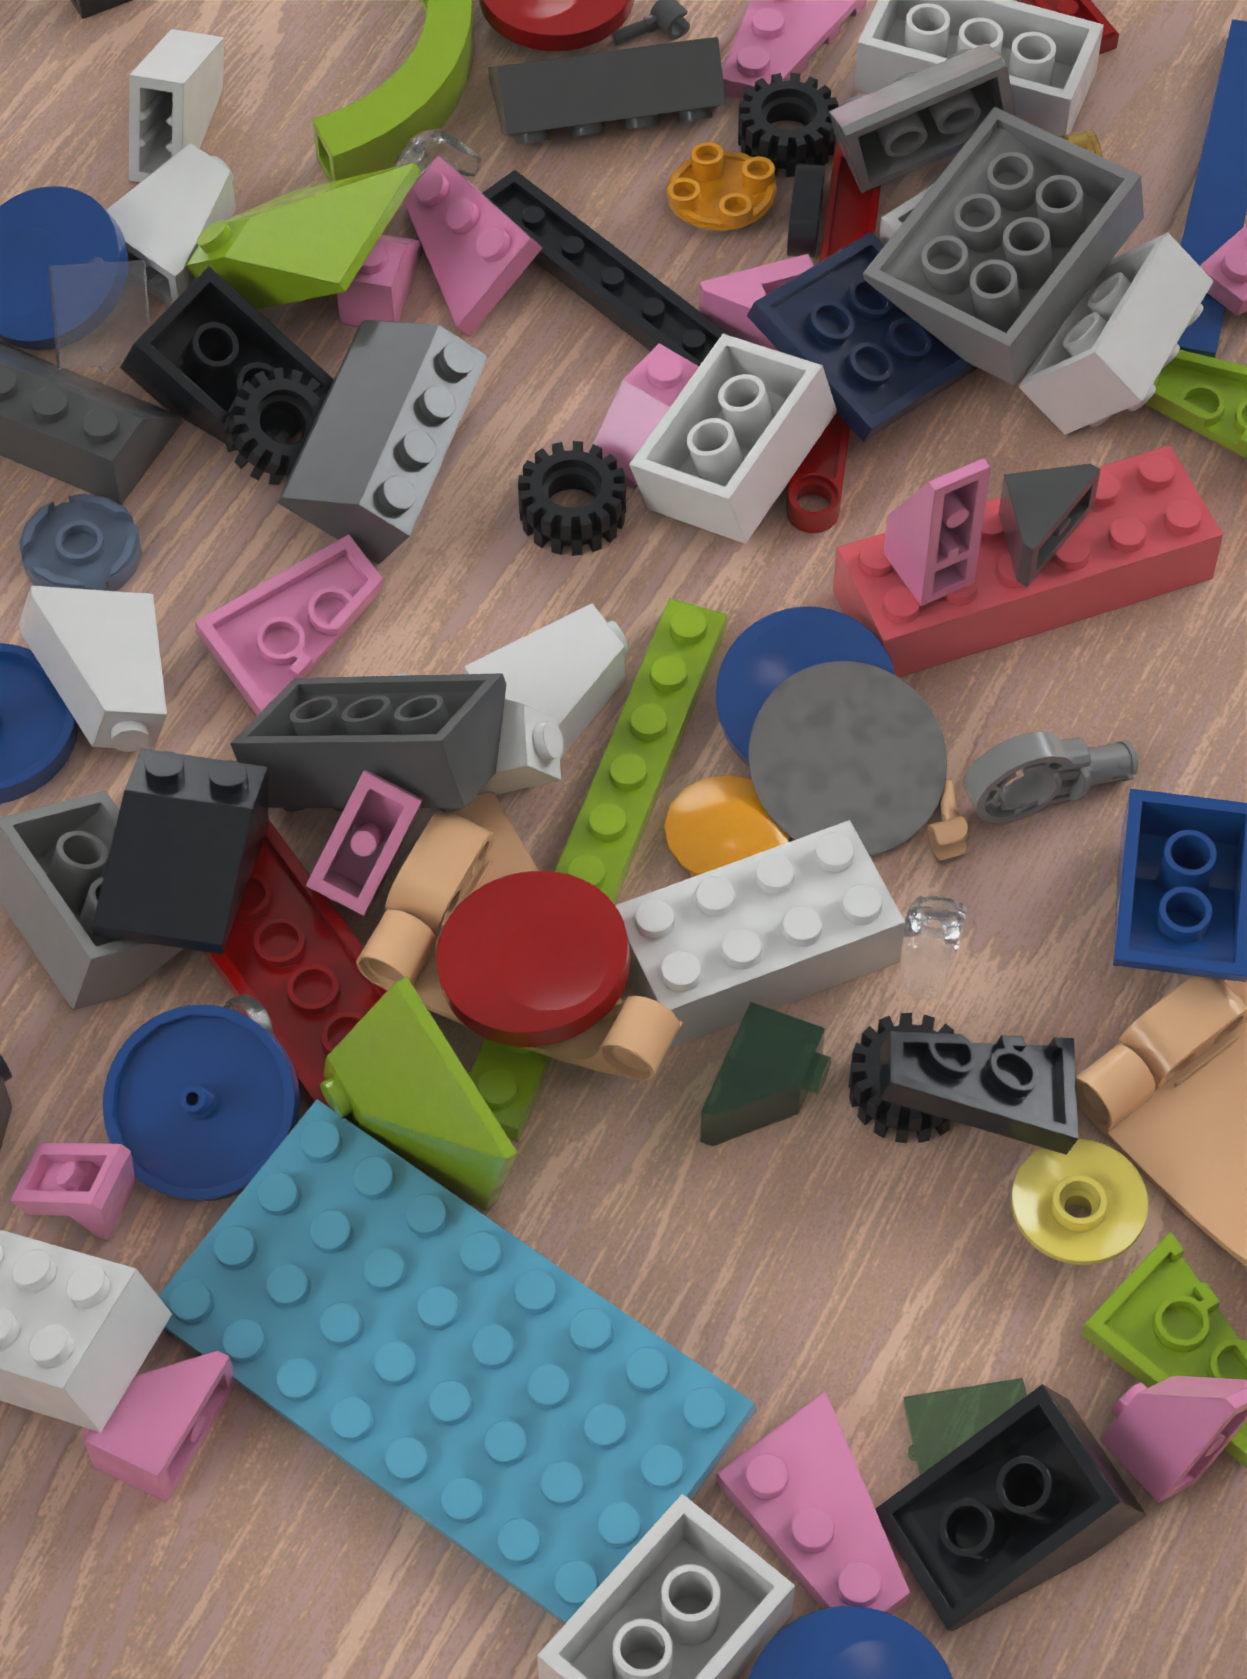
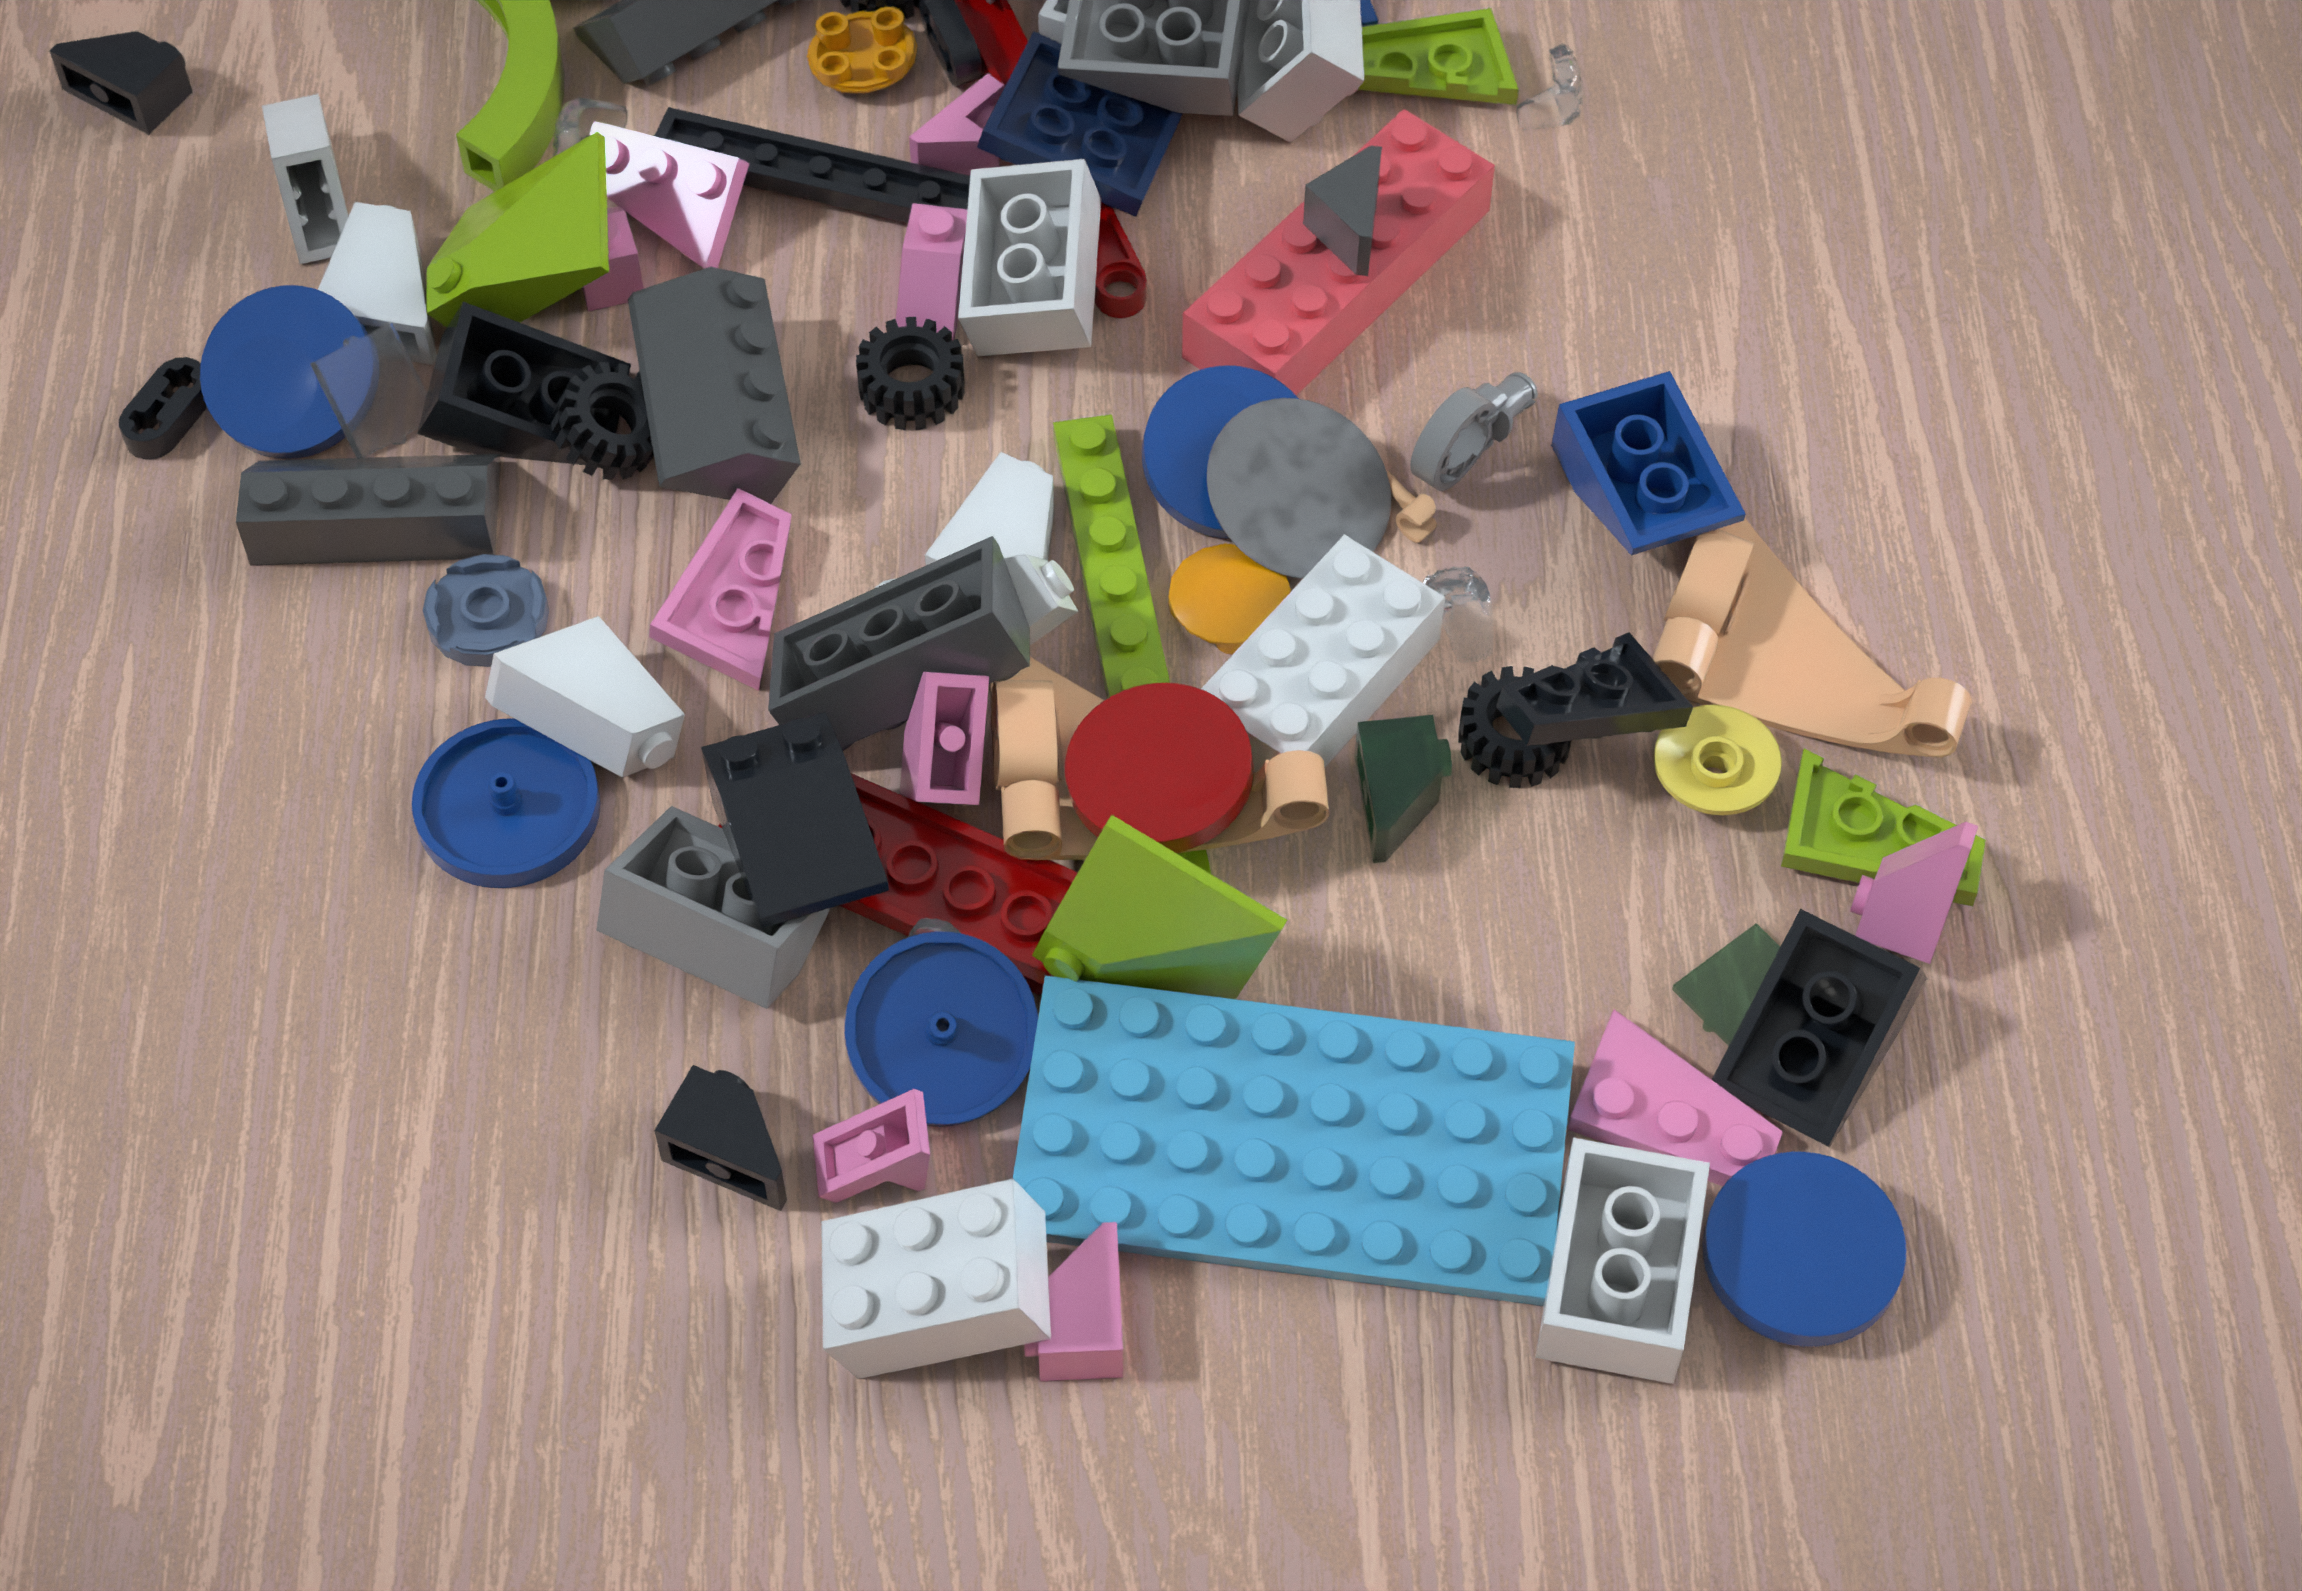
camera: 30 degrees left, 0 degrees up
(938, 533) = (1283, 261): bright pink slope -> none

